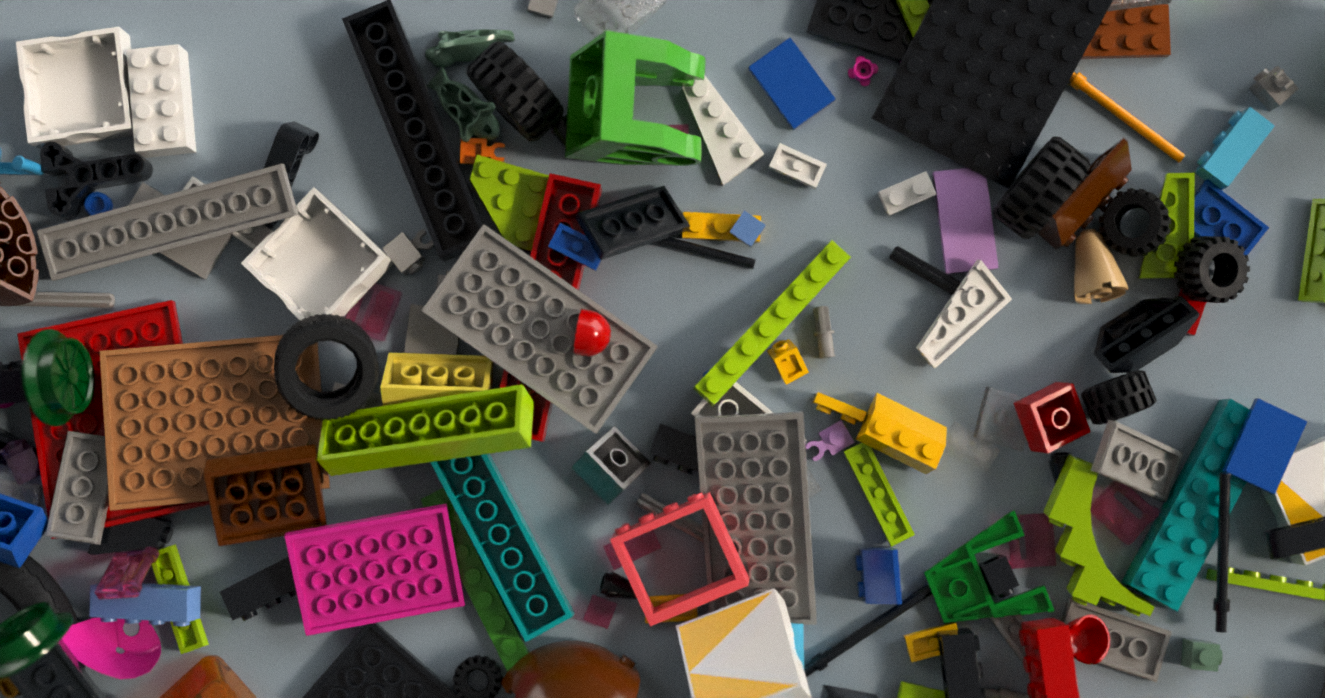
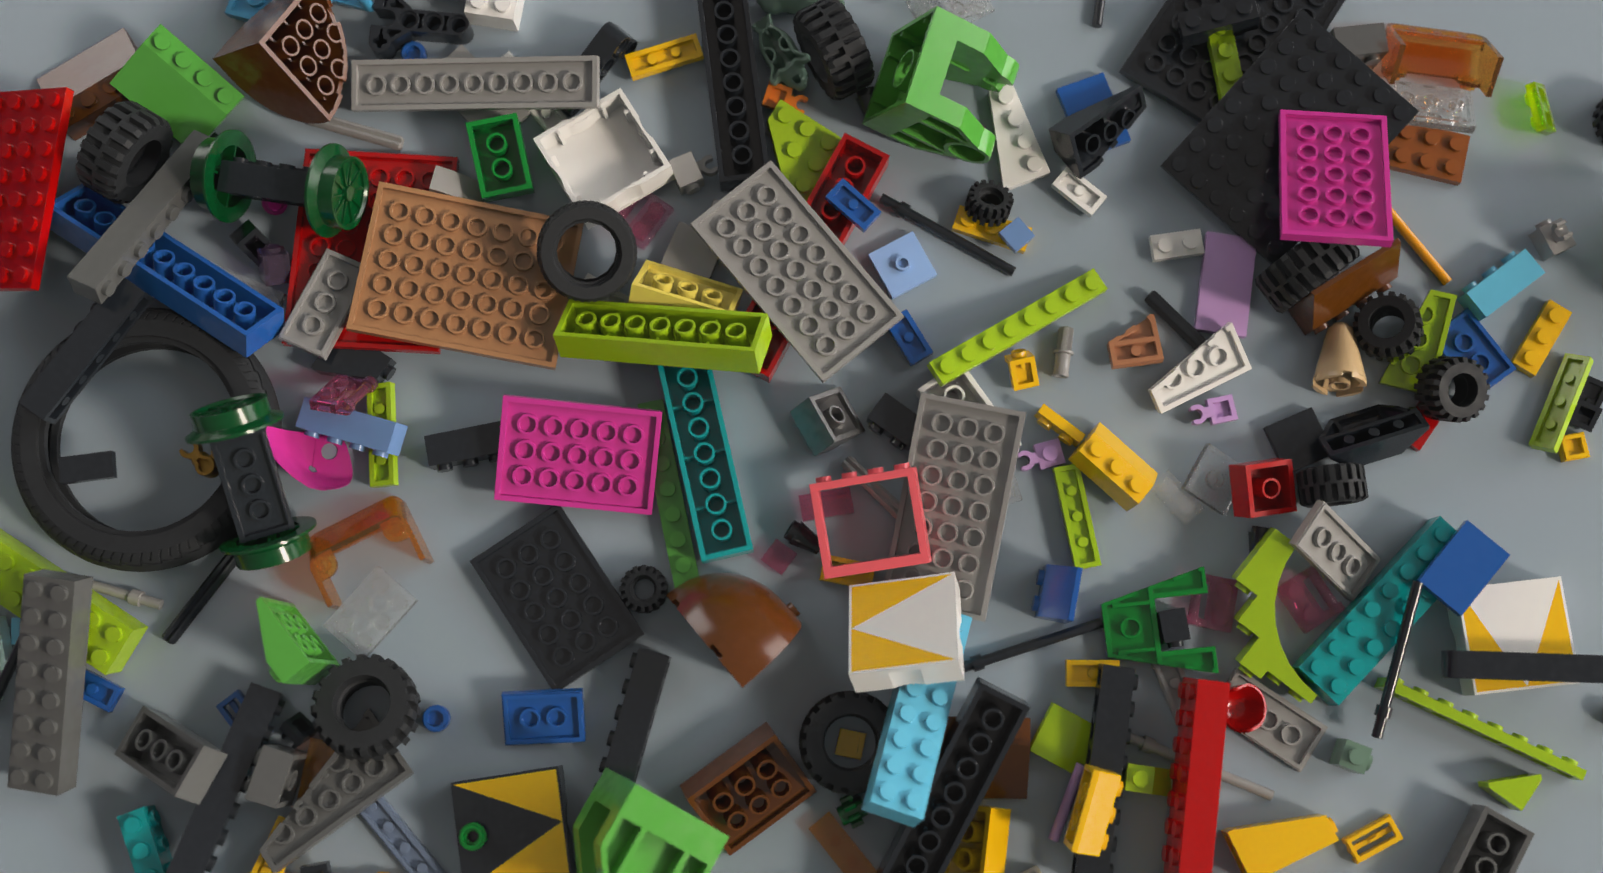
camera: 10 degrees right, 5 degrees down
(179, 330) = (454, 184): none -> light grey slope
(214, 290) = (500, 157): none -> green brick
(265, 494) = (494, 354): reddish brown slope -> none
(349, 140) = (664, 57): none -> yellow plate
(591, 333) = (845, 286): red helmet -> none
(632, 222) = (910, 198): black tile -> none
(643, 287) = (902, 265): none -> light blue plate
(671, 361) = (910, 340): none -> blue plate
(710, 215) = (991, 193): none -> black tyre
(792, 105) = (1089, 133): none -> black wedge
(869, 67) = (1163, 114): dark pink plate -> none
(894, 306) = (1137, 346): none -> nougat wing
(988, 349) = (1217, 410): none -> lavender plate
(1047, 95) = (1334, 178): none -> dark pink plate
(1072, 356) = (1297, 439): none -> black tile
(1285, 190) = (1540, 338): none -> yellow plate

